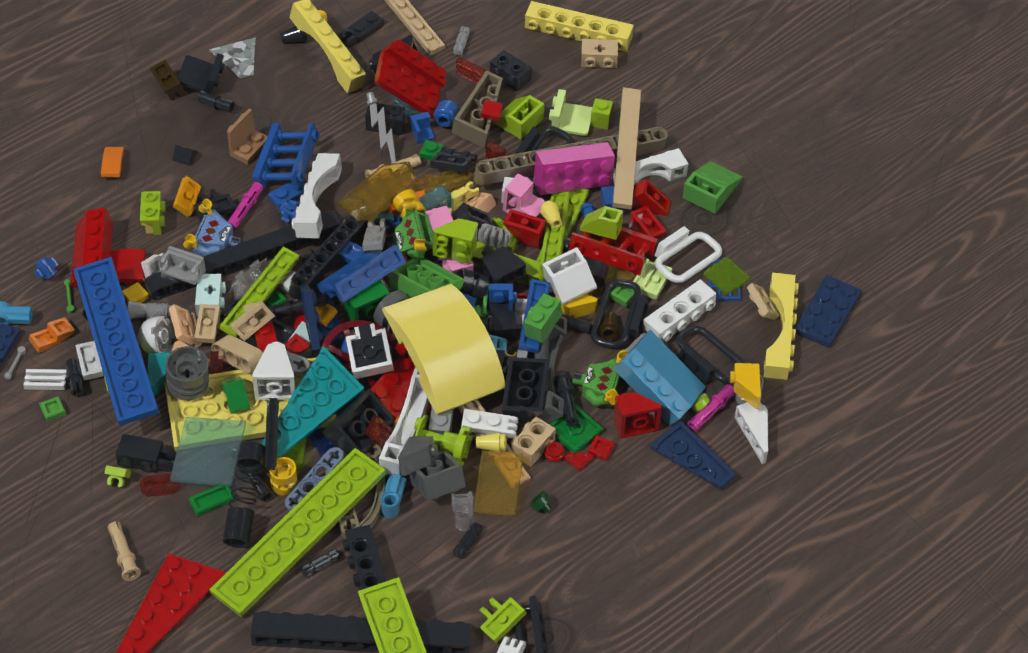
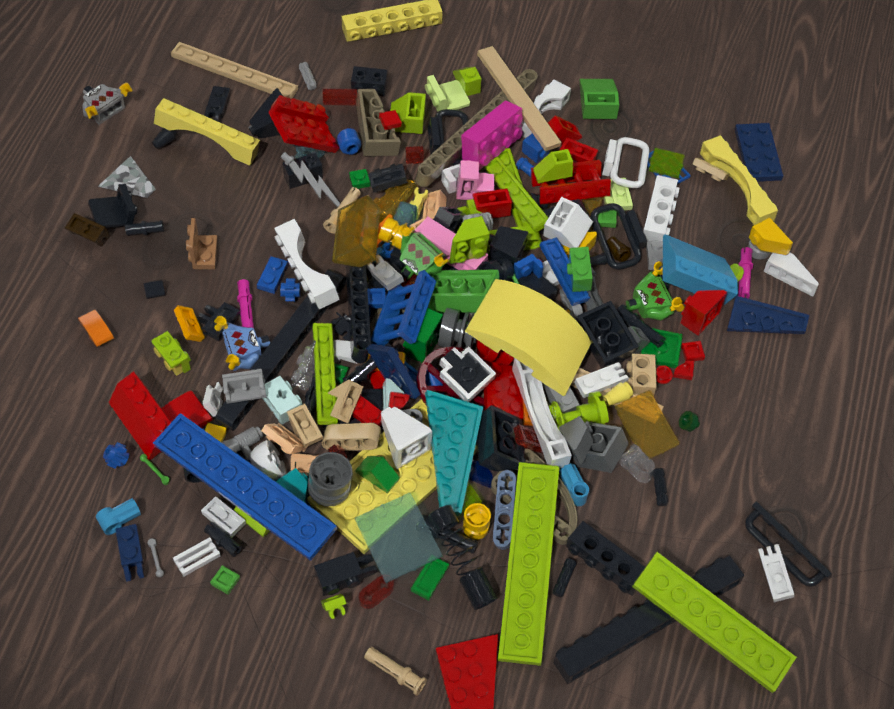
camera: 35 degrees left, 5 degrees up
(54, 334) = (169, 513): orange slope -> none
(271, 434) = (446, 490): black axle -> none
(273, 147) = (229, 244): blue fence -> none
(421, 127) = (336, 165): blue panel -> none
(502, 620) = (745, 537): lime hinge -> none
(551, 213) = (505, 180): light yellow cone -> none
(599, 53) = (426, 33): tan brick -> none
(696, 363) = (708, 243): black bar -> none

